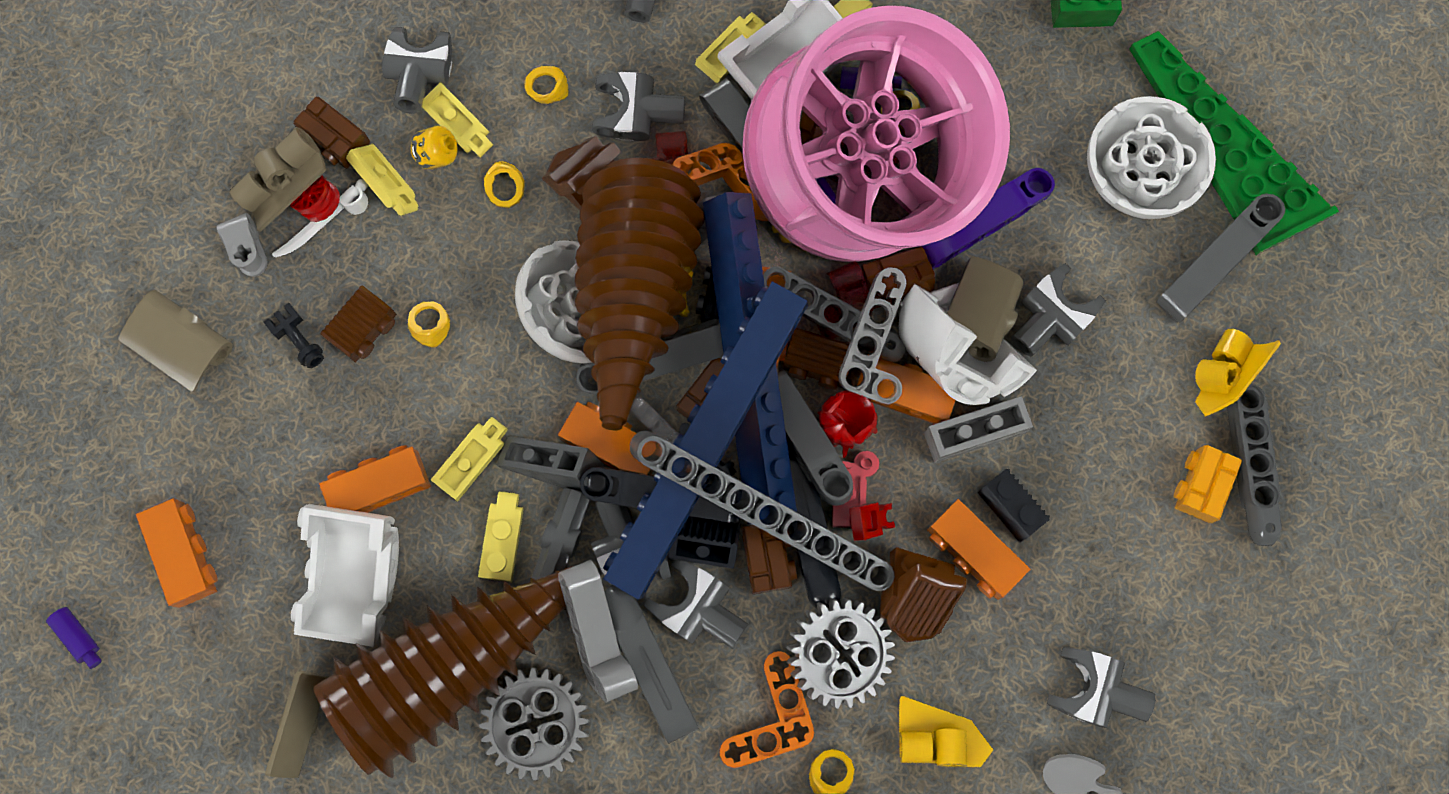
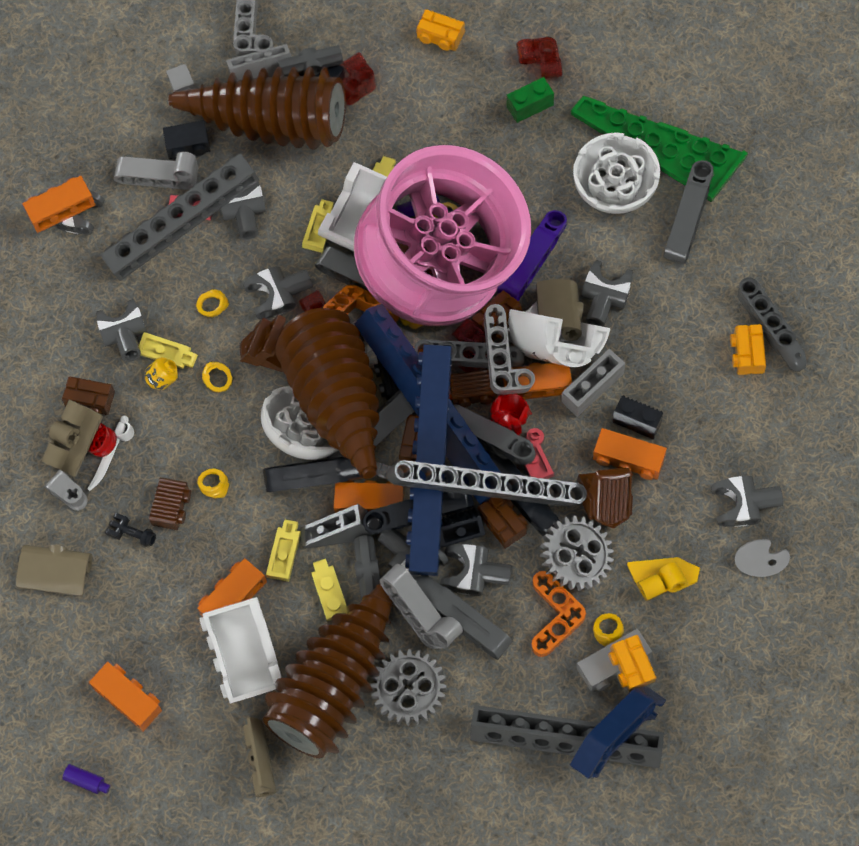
camera: 20 degrees left, 10 degrees down
(383, 179) = (137, 408): light yellow hinge -> none
(543, 372) = (309, 474): none -> black piece
(869, 520) = (554, 466): red plate -> none
(1231, 370) = (729, 276): yellow panel -> none

